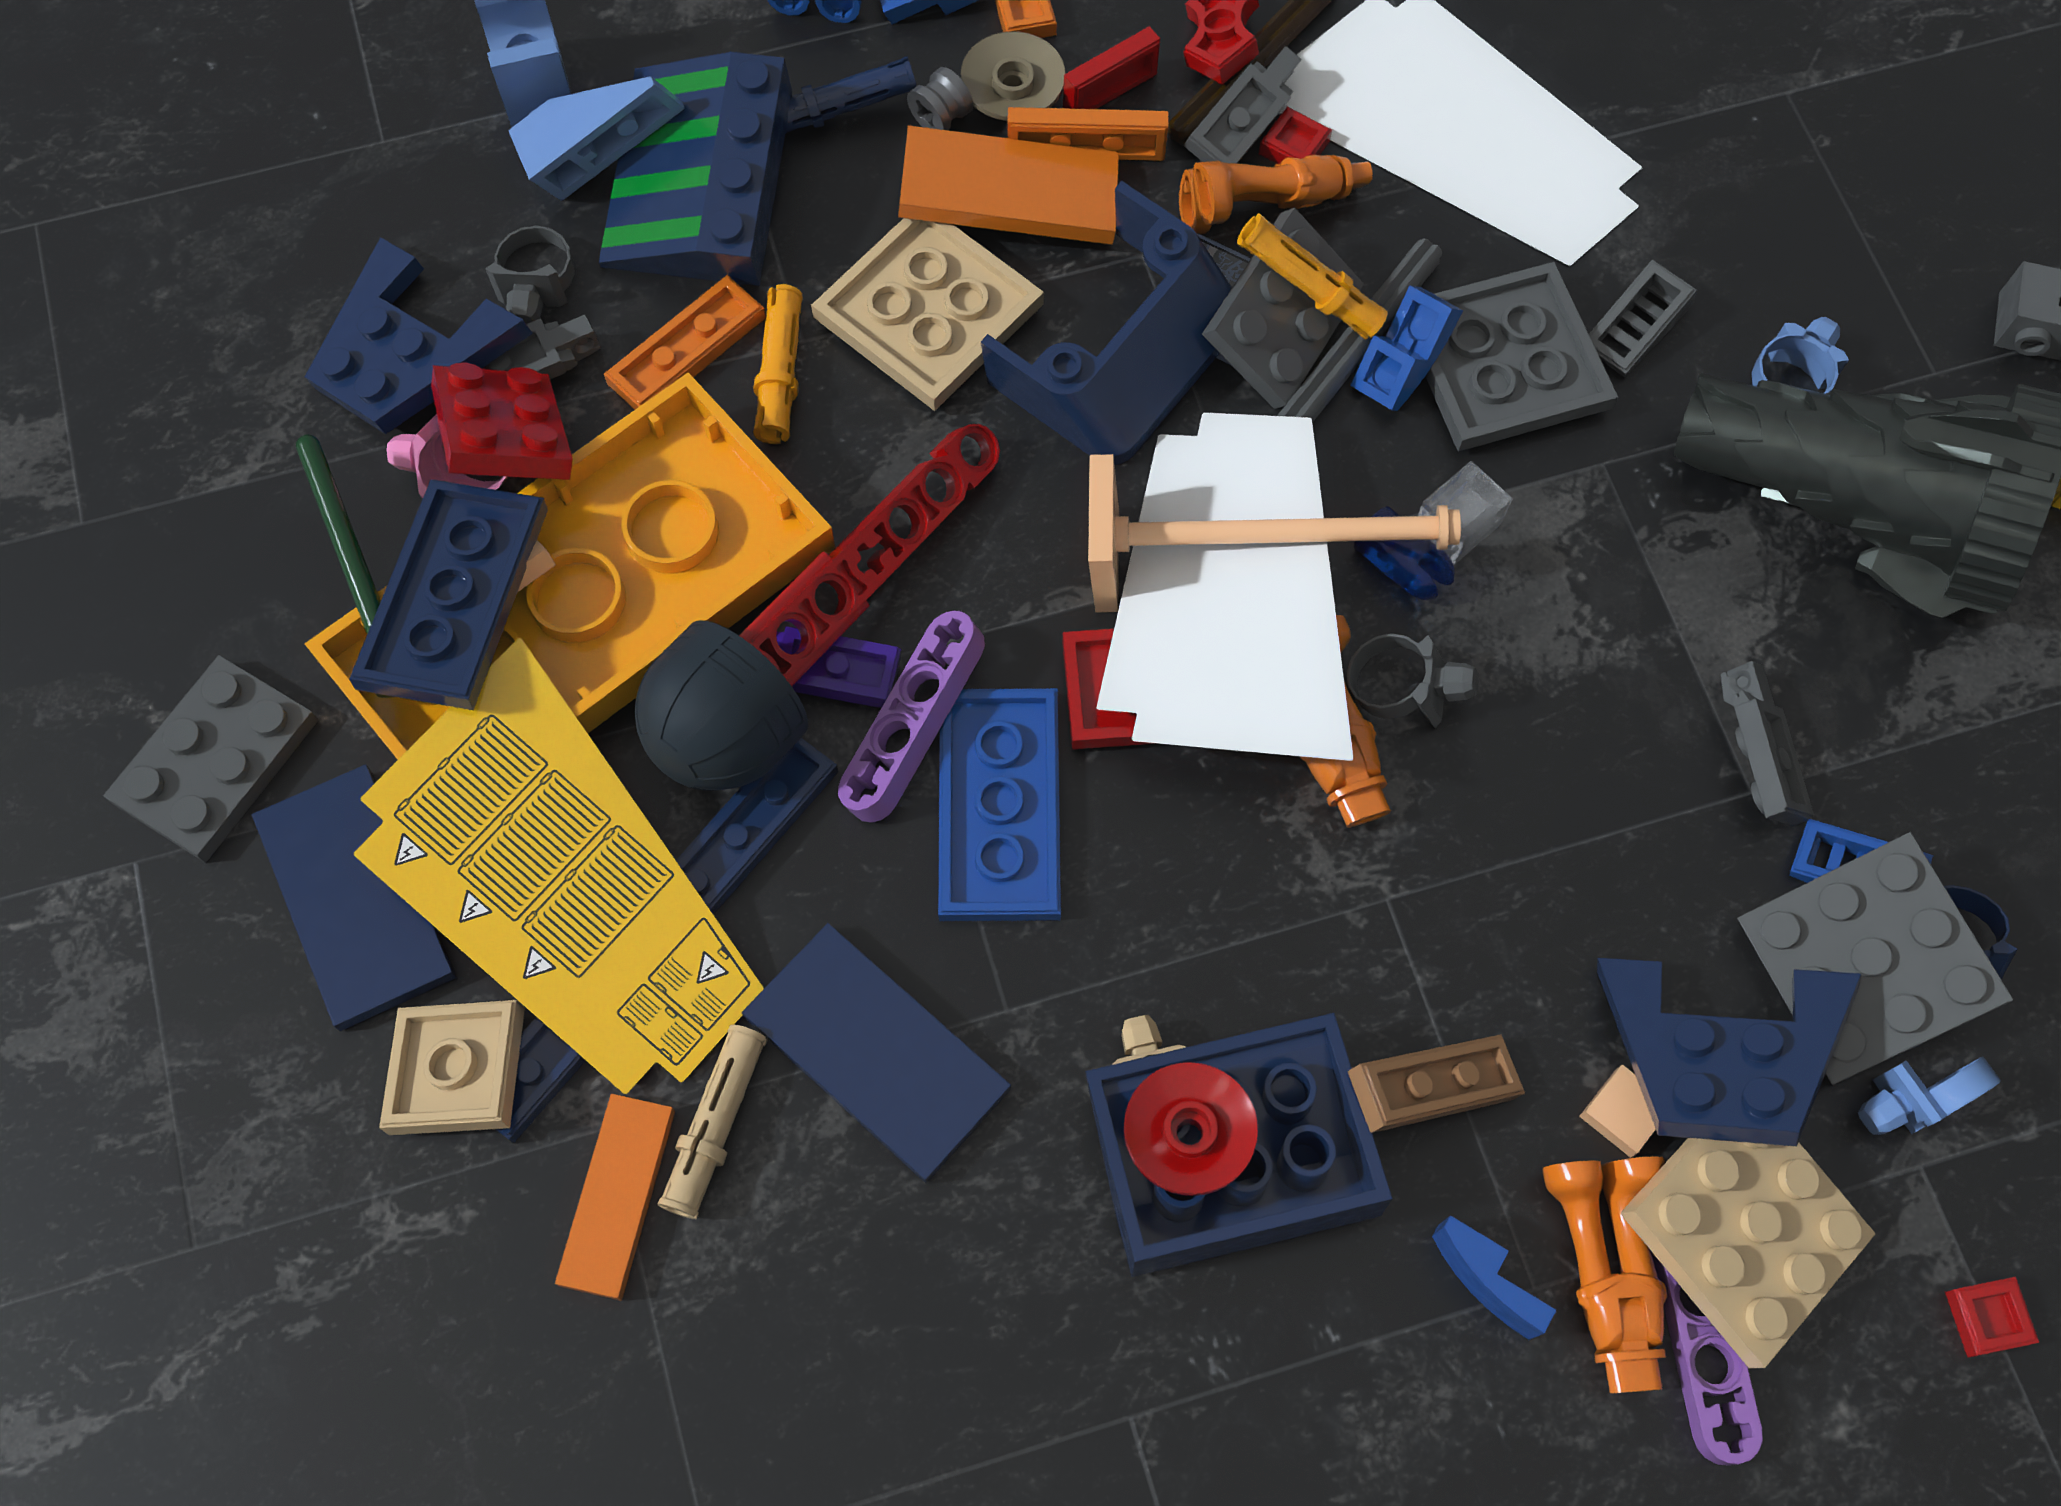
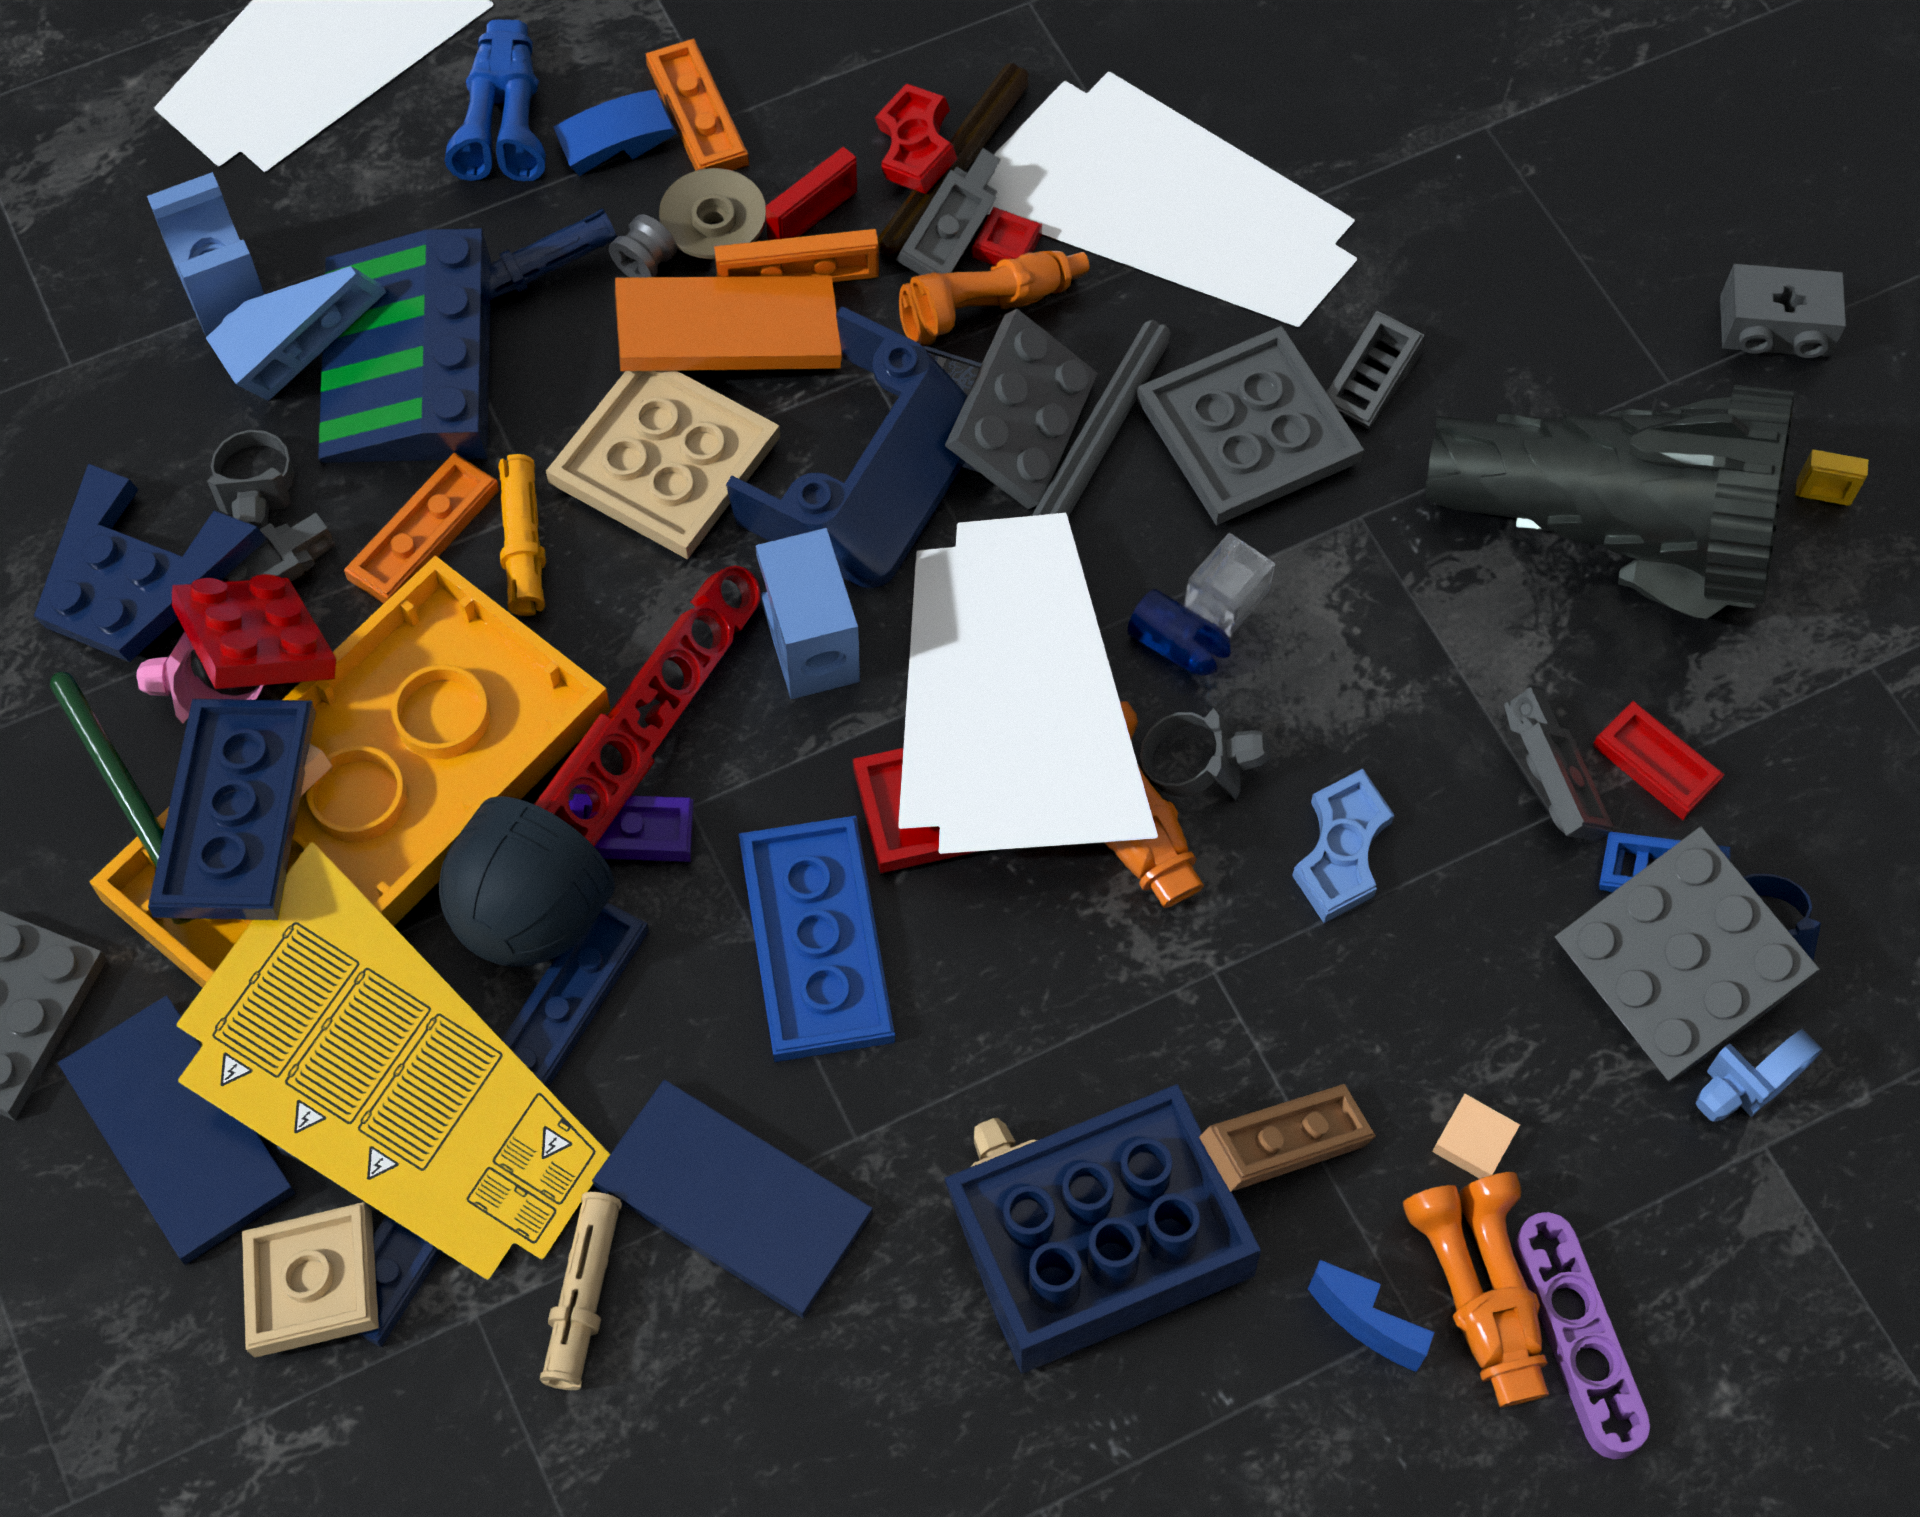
camera: 10 degrees left, 5 degrees down
(615, 1197) = (495, 1381): orange tile -> none
(920, 718) = (706, 862): medium lavender beam -> none
(1042, 481) = (809, 613): none -> medium blue piece
(1115, 533) = (890, 654): light nougat tile -> none
(1196, 1097) = (1055, 1183): red dish -> none
(1329, 290) = (1063, 384): light orange pin -> none
(1412, 344) = (1147, 441): blue slope -> none
(1527, 815) = (1337, 870): none -> medium blue tile
(1728, 1072) = (1562, 1081): dark blue wing -> none
(1749, 1237) = (1605, 1224): tan plate -> none
(1809, 349) = (1541, 377): medium blue piece -> none
(1869, 753) = (1658, 760): none -> red tile
(1991, 1317) = (1850, 1276): red tile -> none

